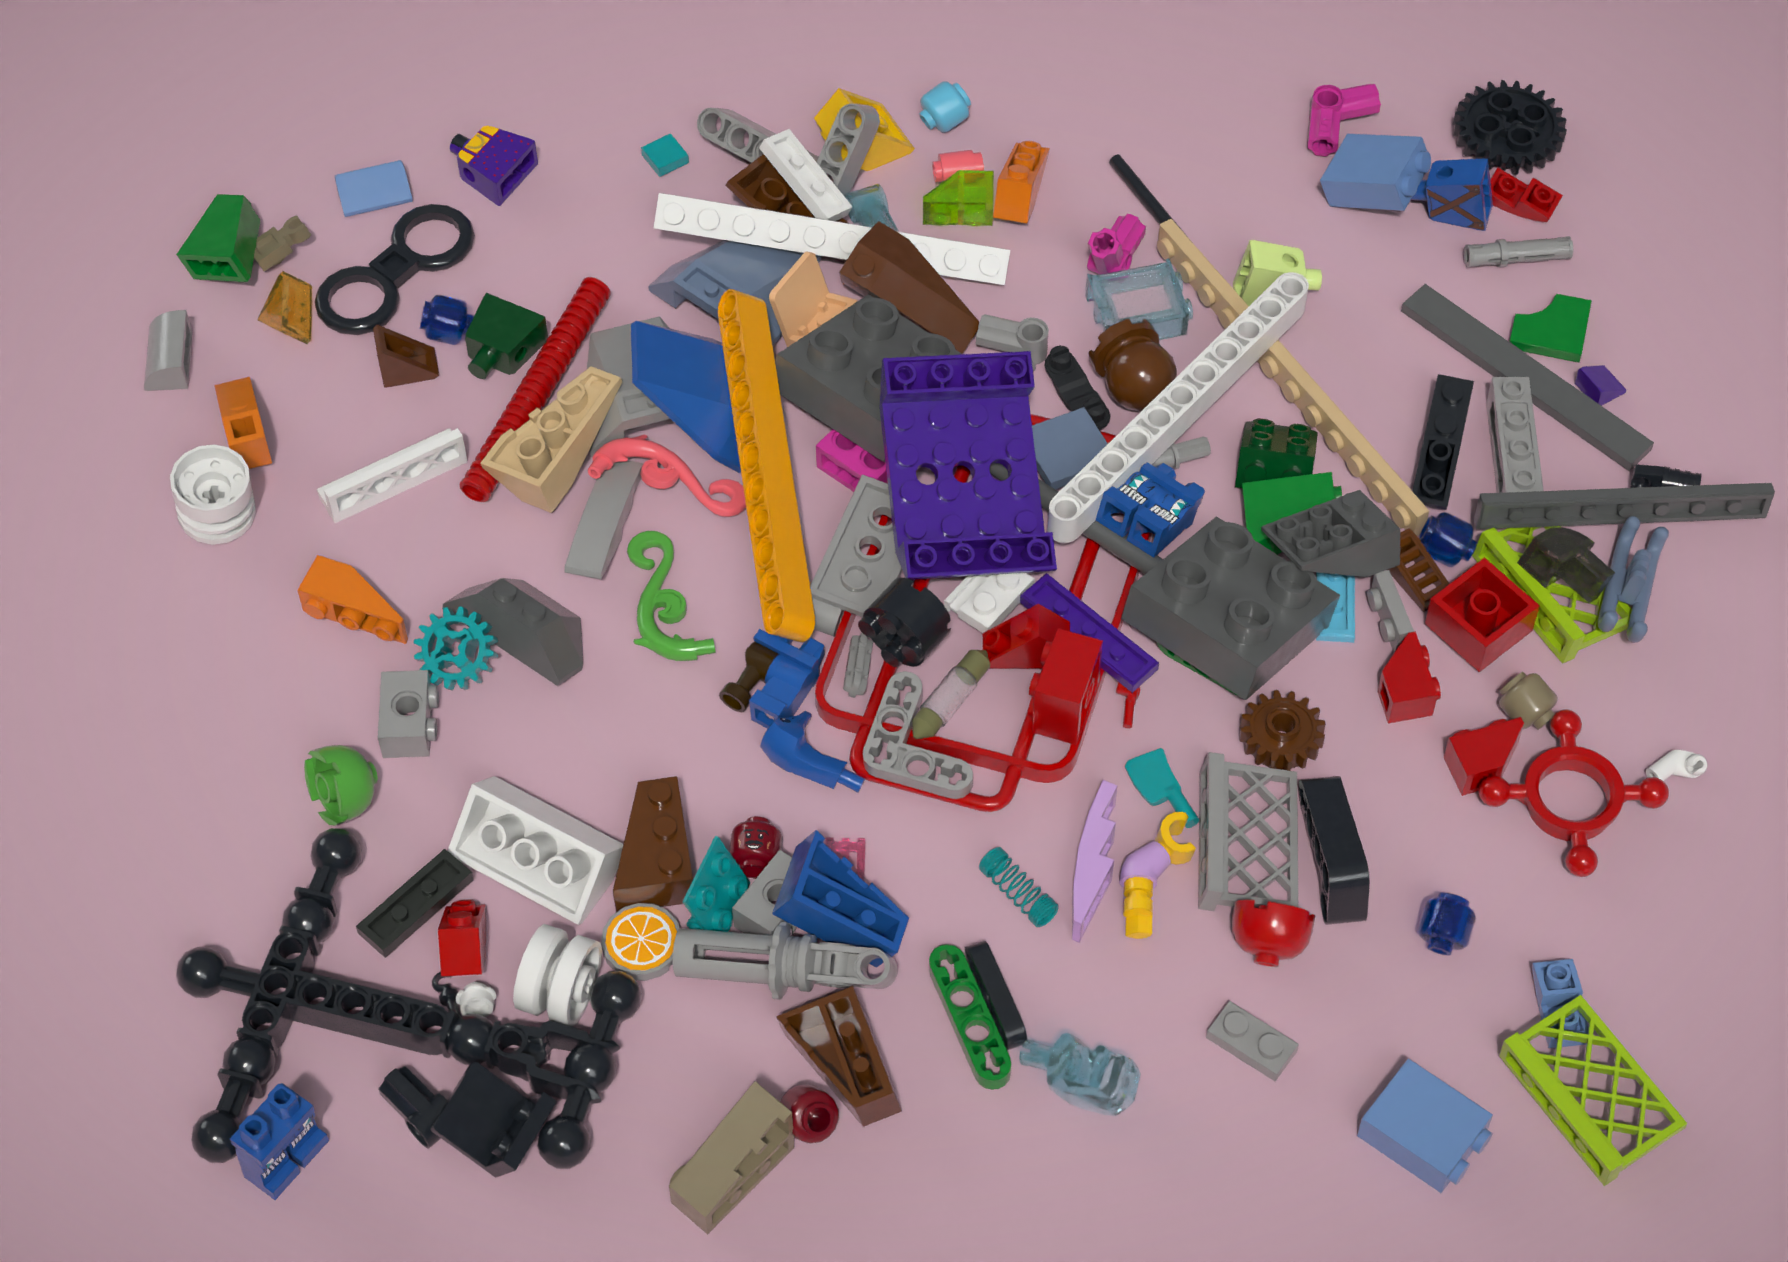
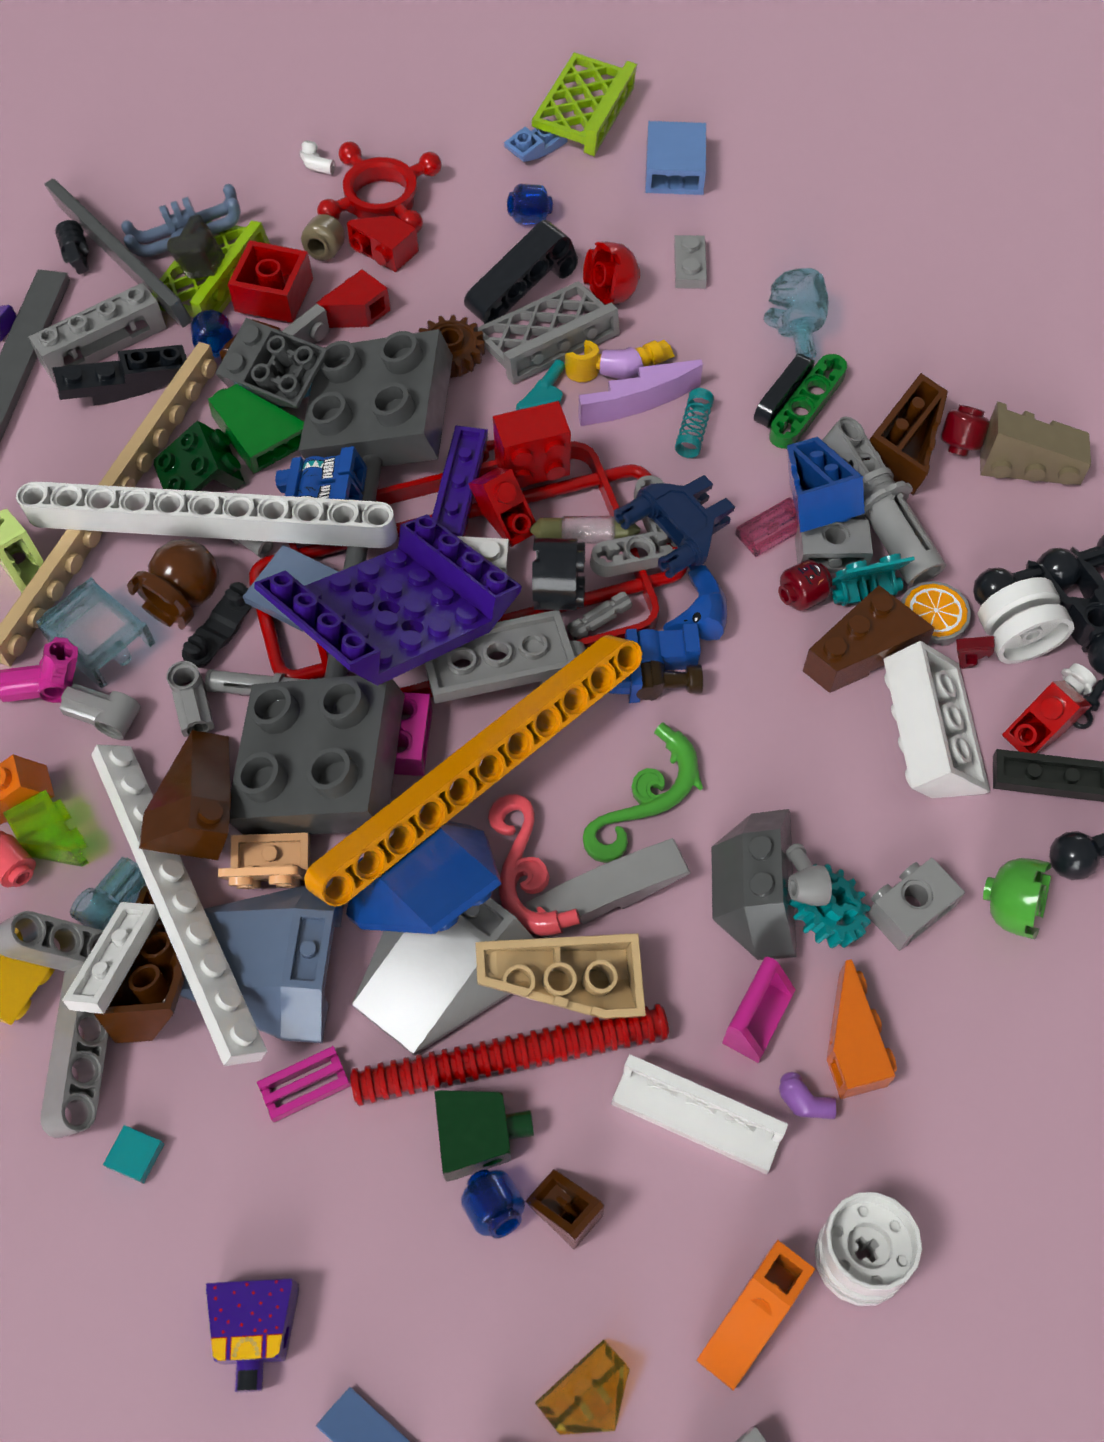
camera: 125 degrees left, 5 degrees up
(339, 542) = (801, 1100): none -> medium lavender arm
(394, 268) = (455, 1325): black bar -> none
(423, 550) = (760, 1011): none -> dark pink tile
(472, 613) = (811, 883): none -> light grey bar
(574, 920) = (973, 649): none -> dark red tile
(632, 245) = (295, 1070): none -> dark pink tile
(888, 759) = (682, 518): none -> dark blue connector
(1047, 281) = (108, 713): none -> light grey piece

